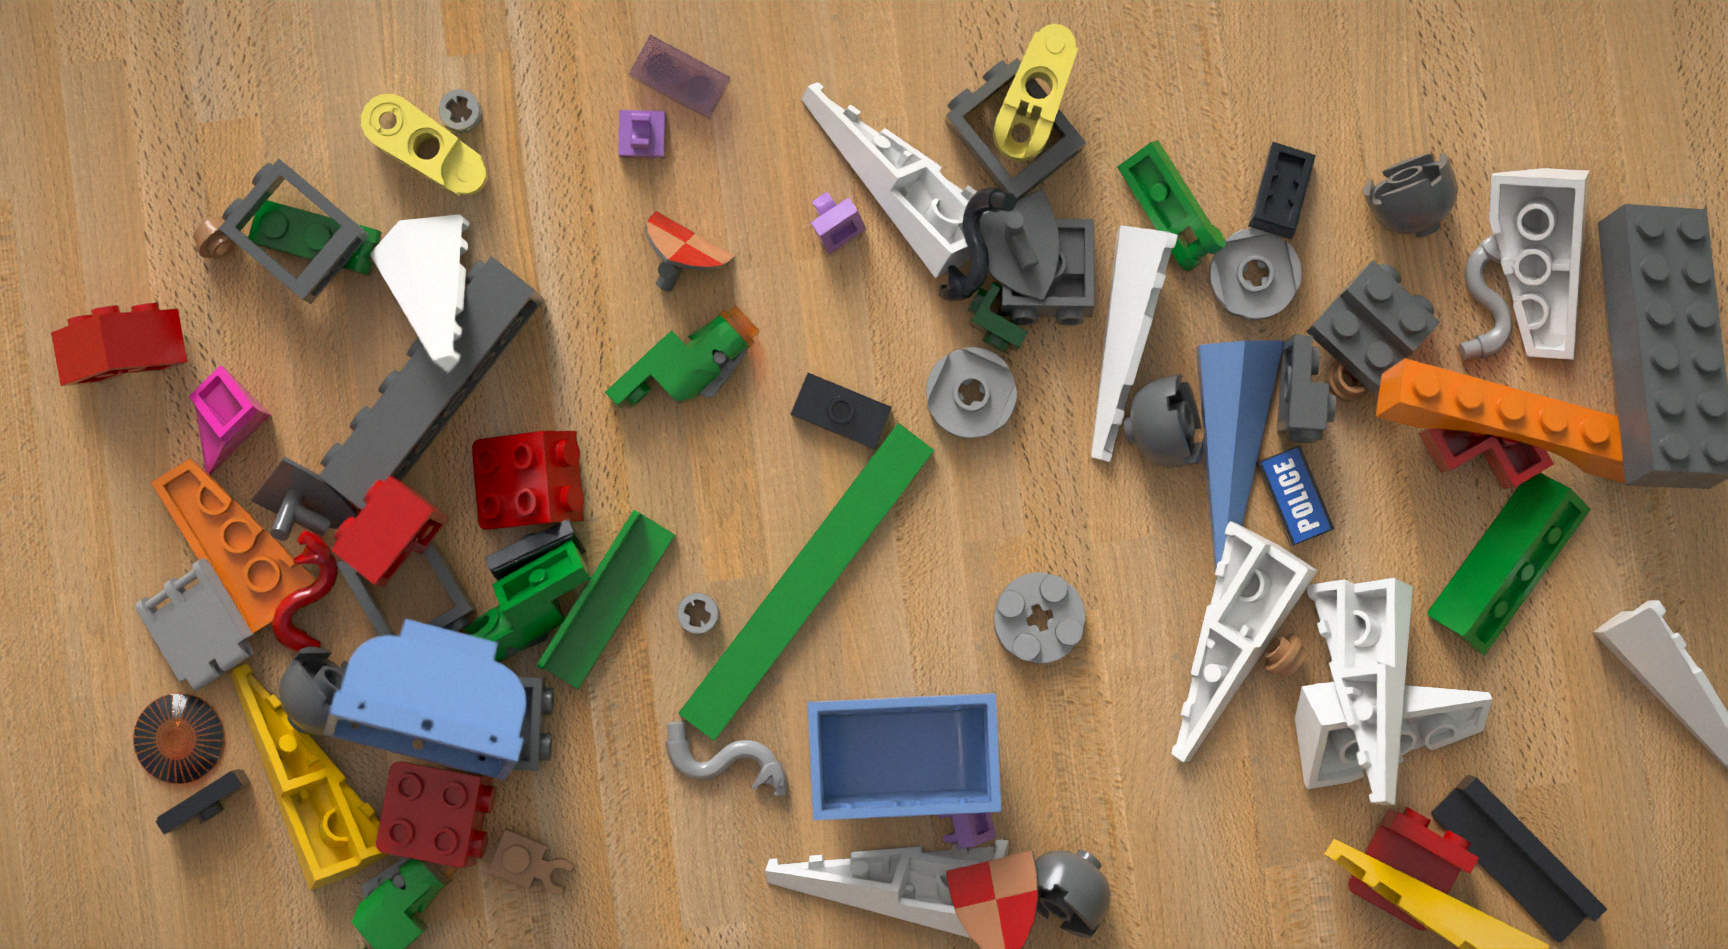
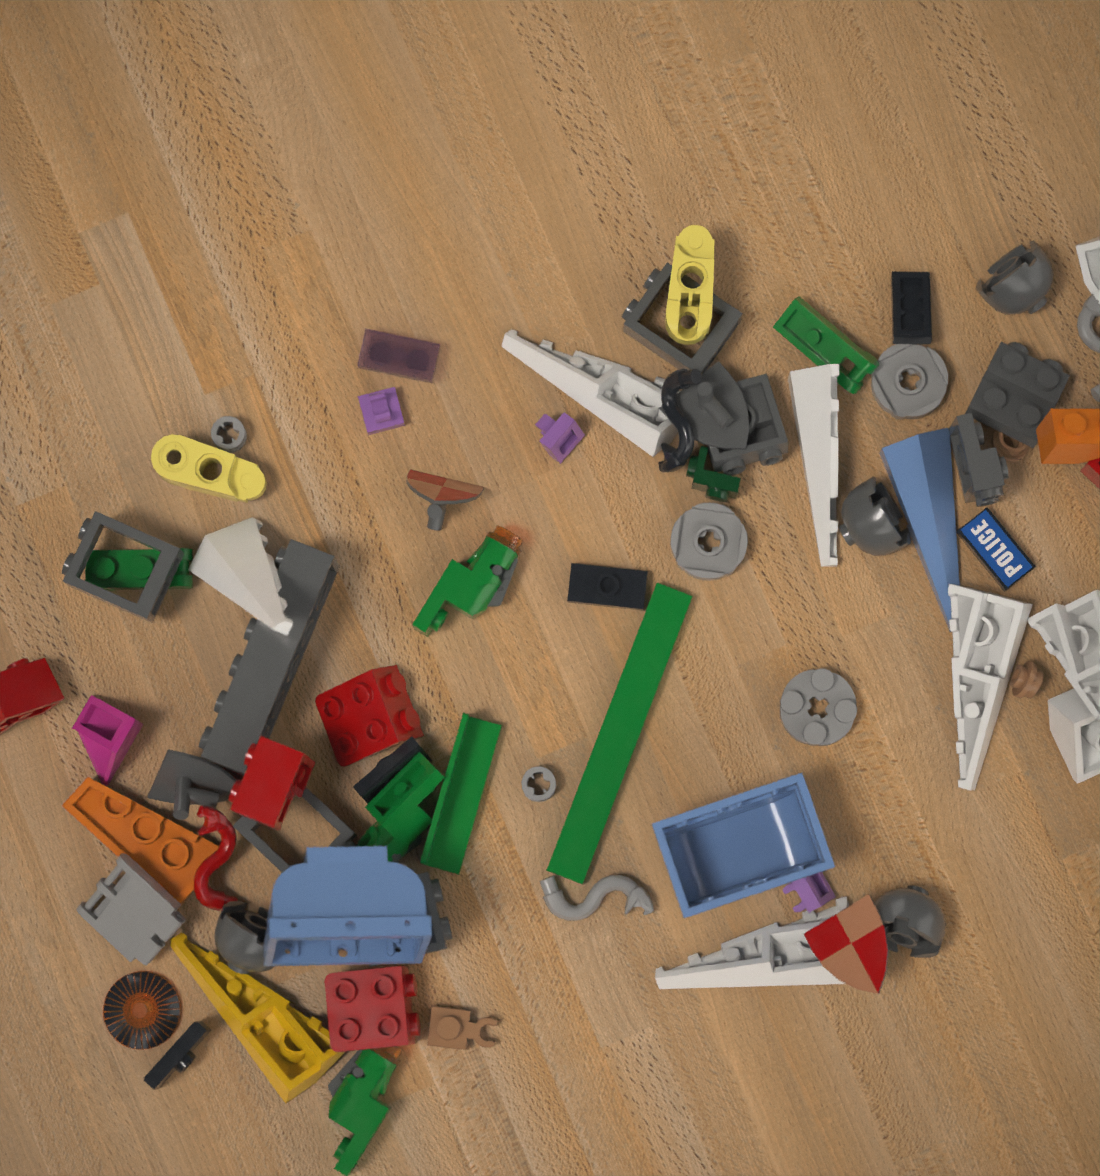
camera: 10 degrees left, 5 degrees down
(211, 240) = (57, 593): medium nougat plate -> none

